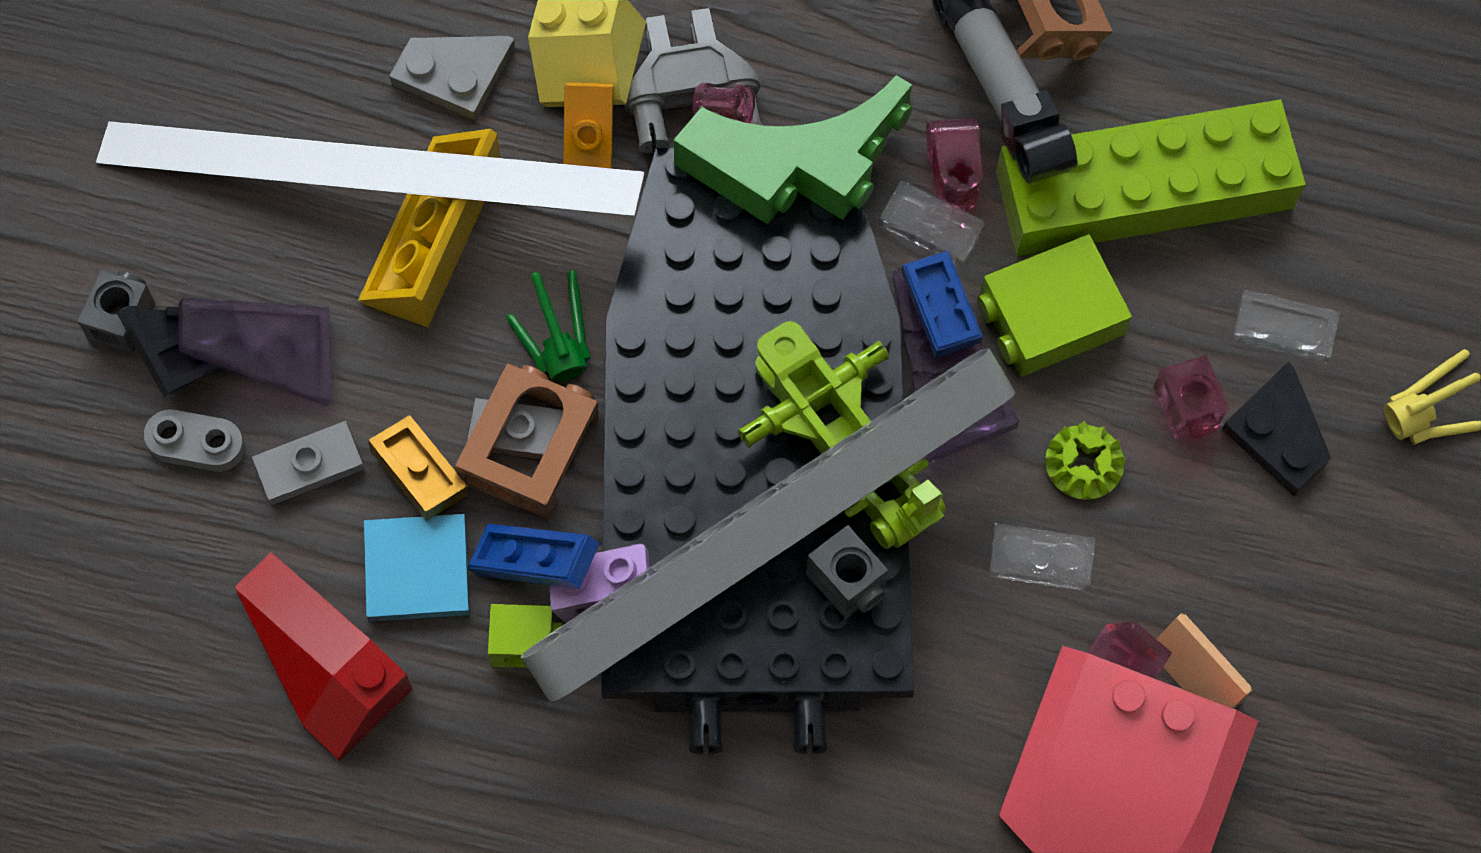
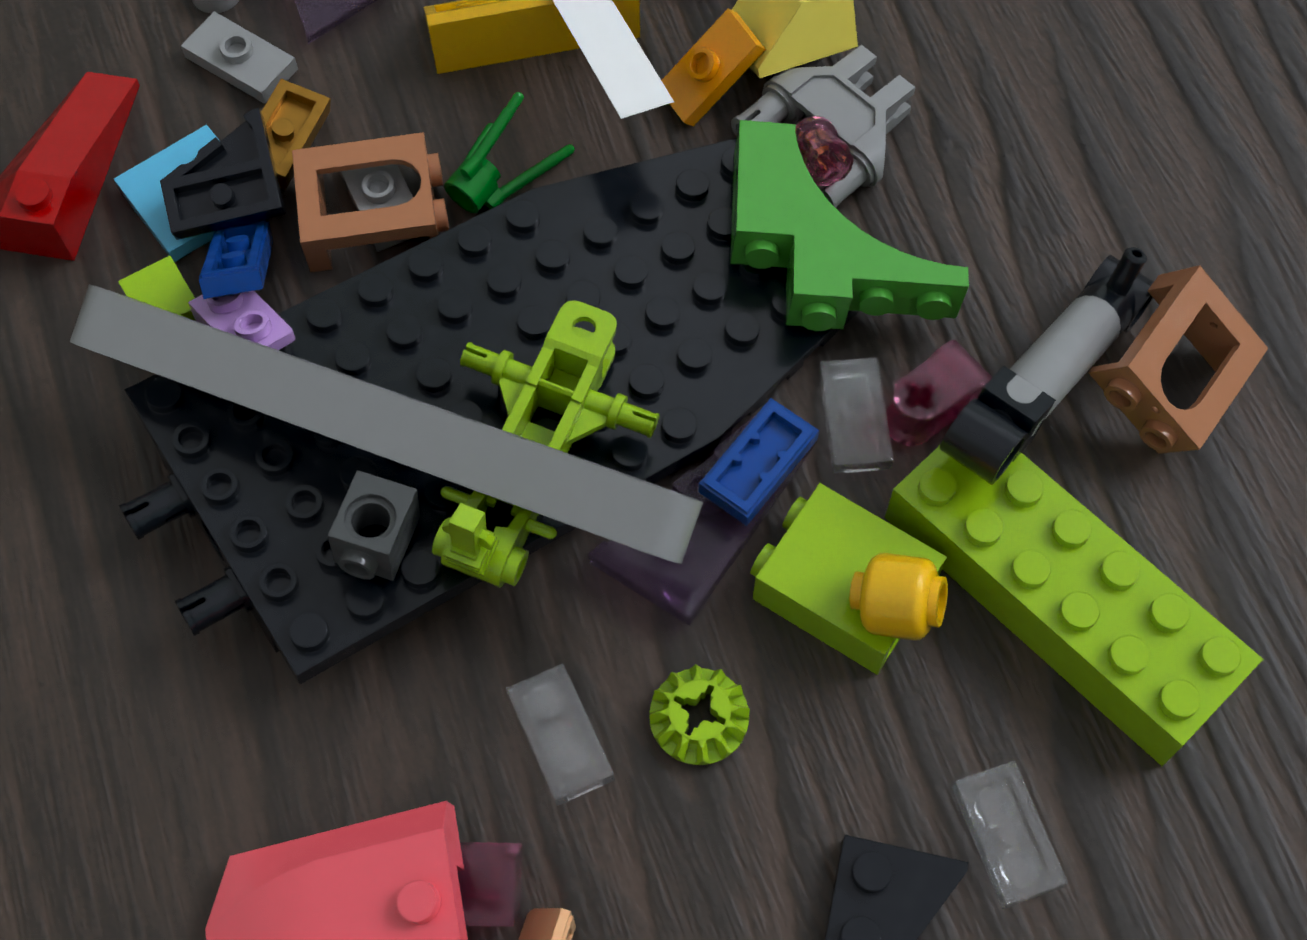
camera: 60 degrees right, 5 degrees down
(449, 529) = (225, 183): none -> black wing
(1108, 278) = (899, 596): none -> yellow head
(1197, 379) = (850, 753): clear pink brick -> none

